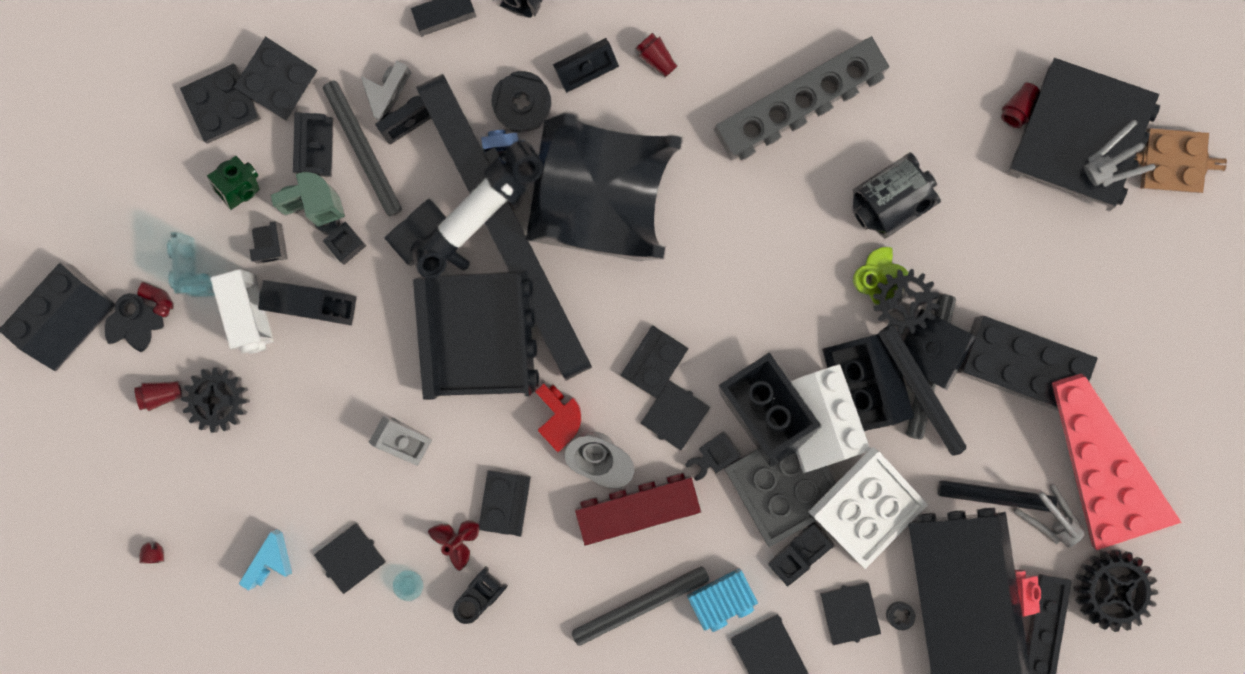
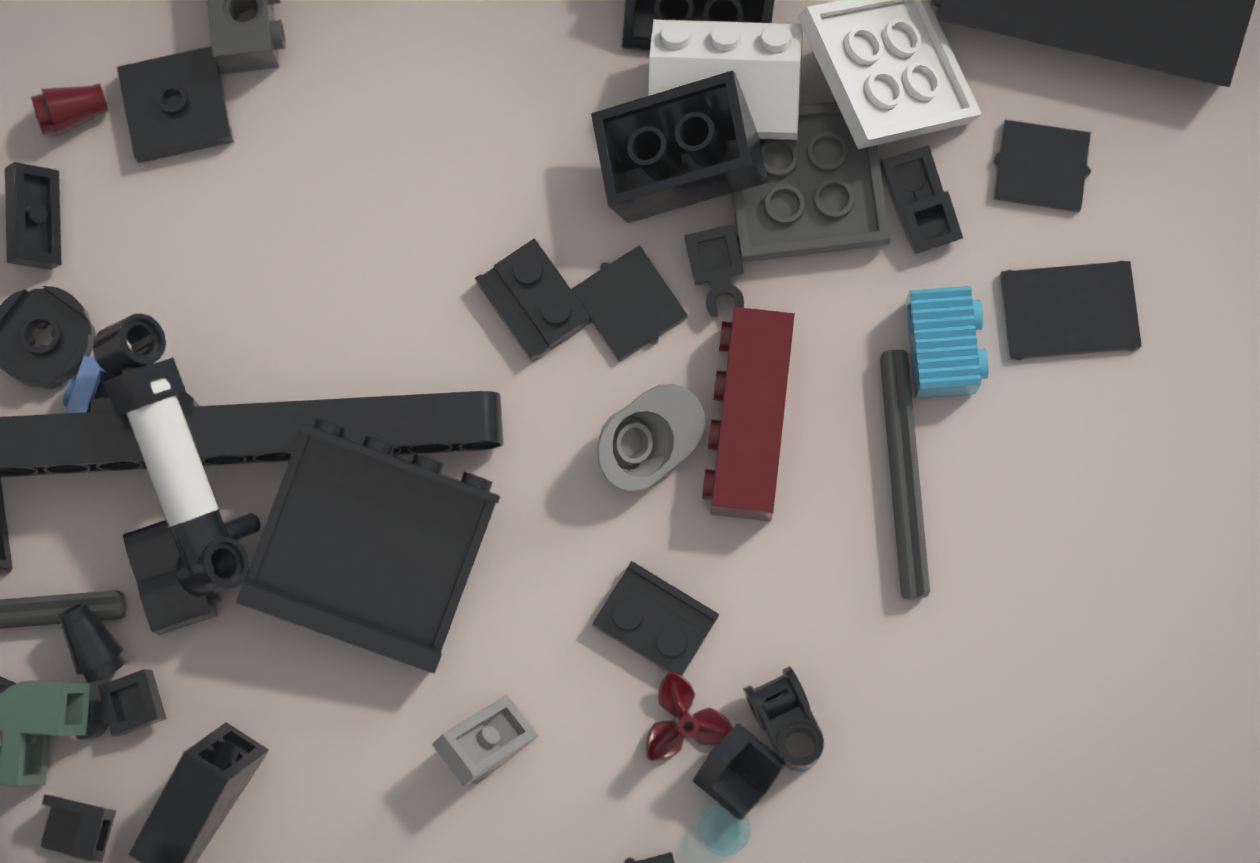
camera: 60 degrees left, 10 degrees down
(365, 207) = (90, 644): none -> black cone
(439, 582) = (739, 771): none -> black panel
(567, 419) = (561, 464): red brick -> none
(599, 189) = (228, 262): black piece -> none
(684, 111) = (174, 104): none -> black plate
(901, 606) = (1079, 77): black bush -> none

